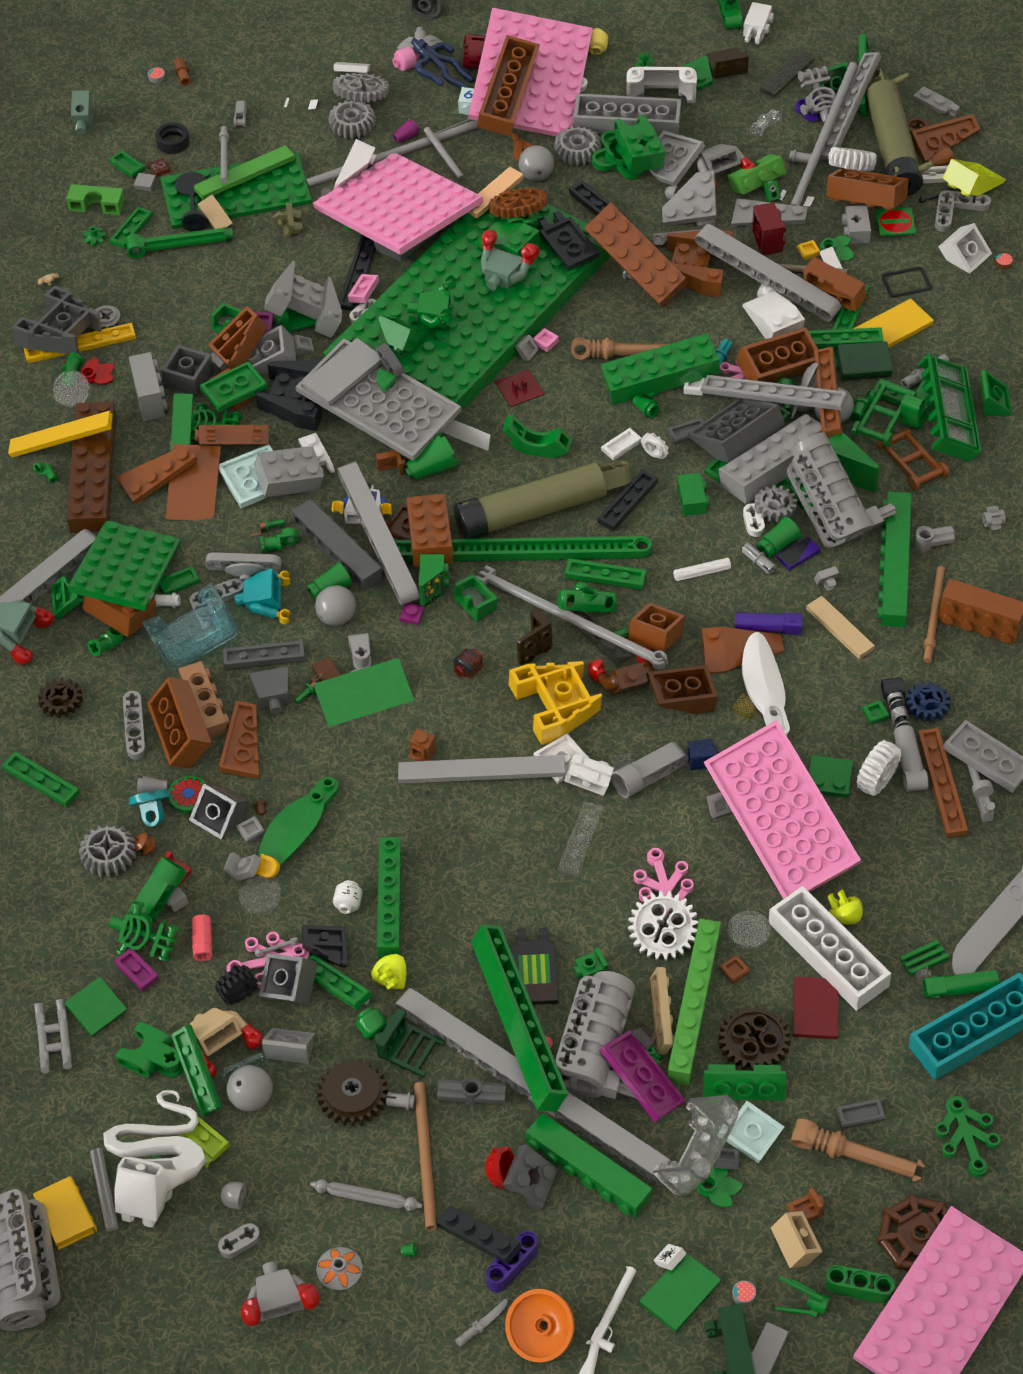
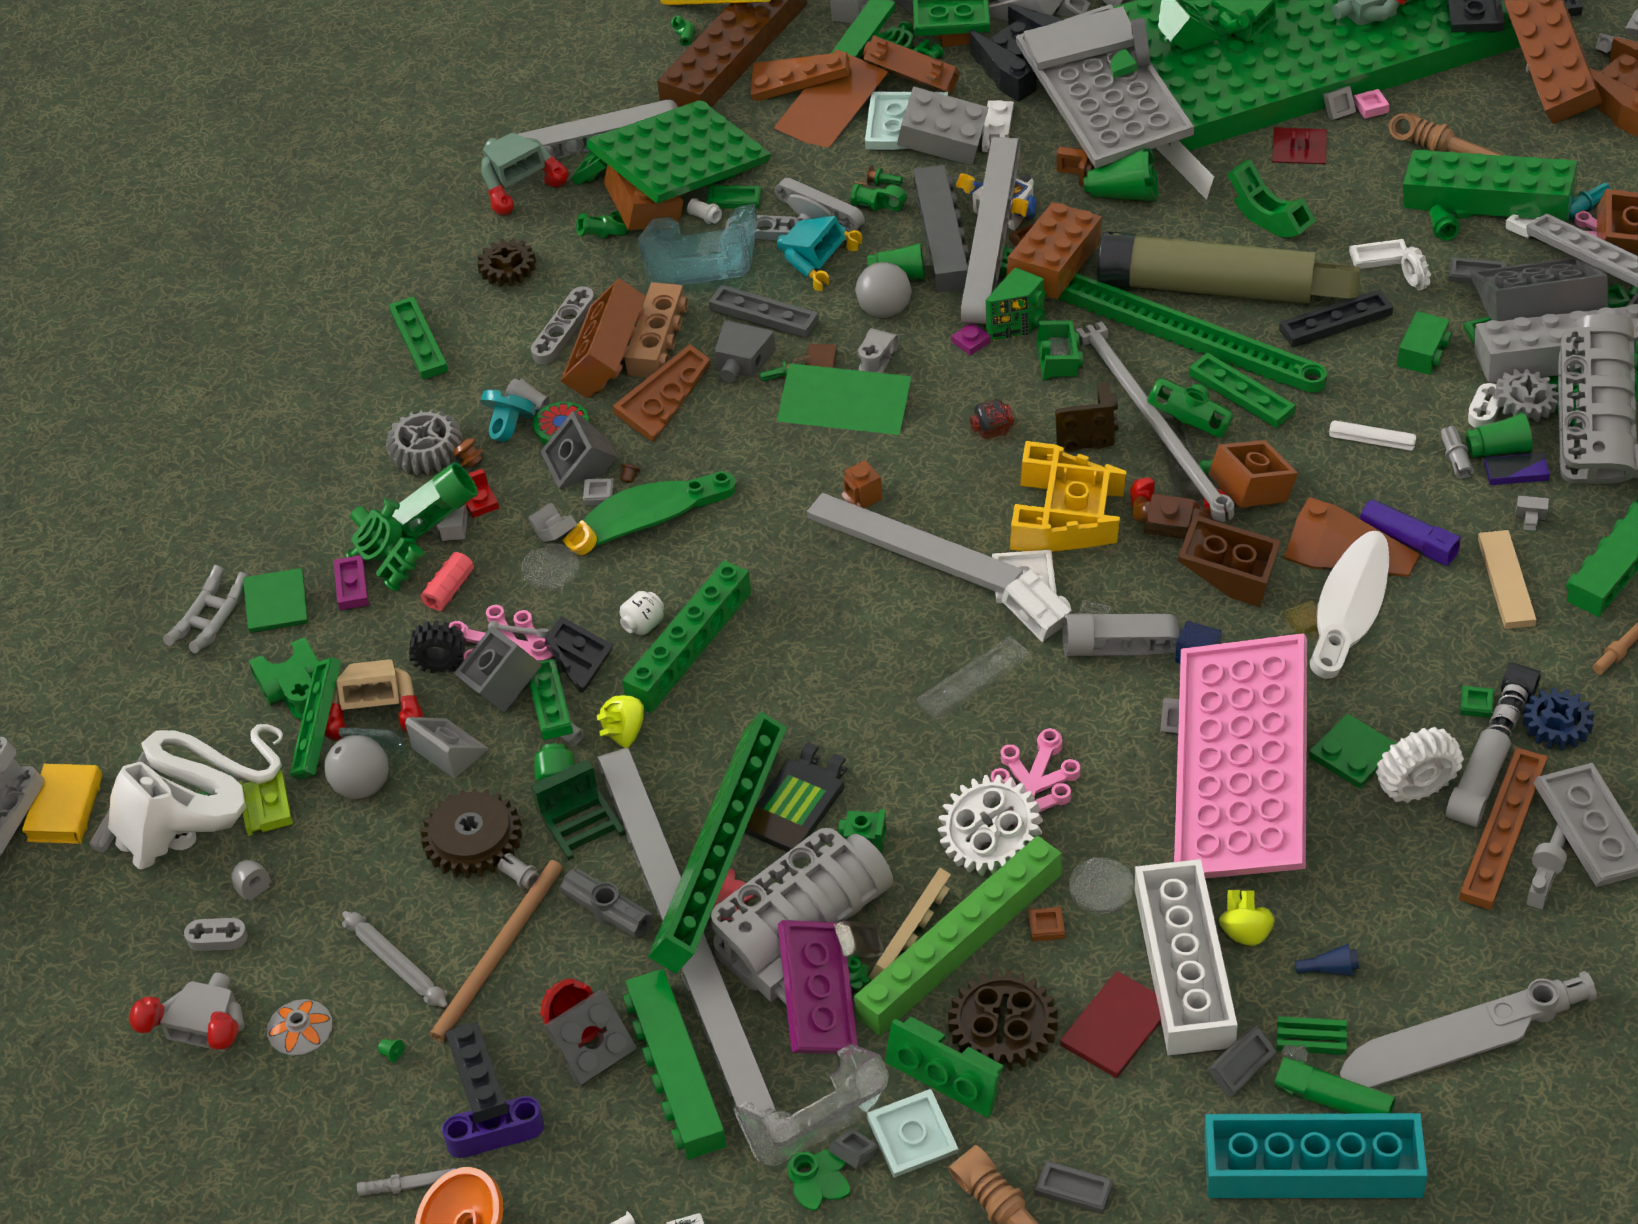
camera: 35 degrees right, 5 degrees down
(899, 992) = (1242, 1060): none -> dark grey tile
(910, 907) = (1336, 961): none -> dark blue cone

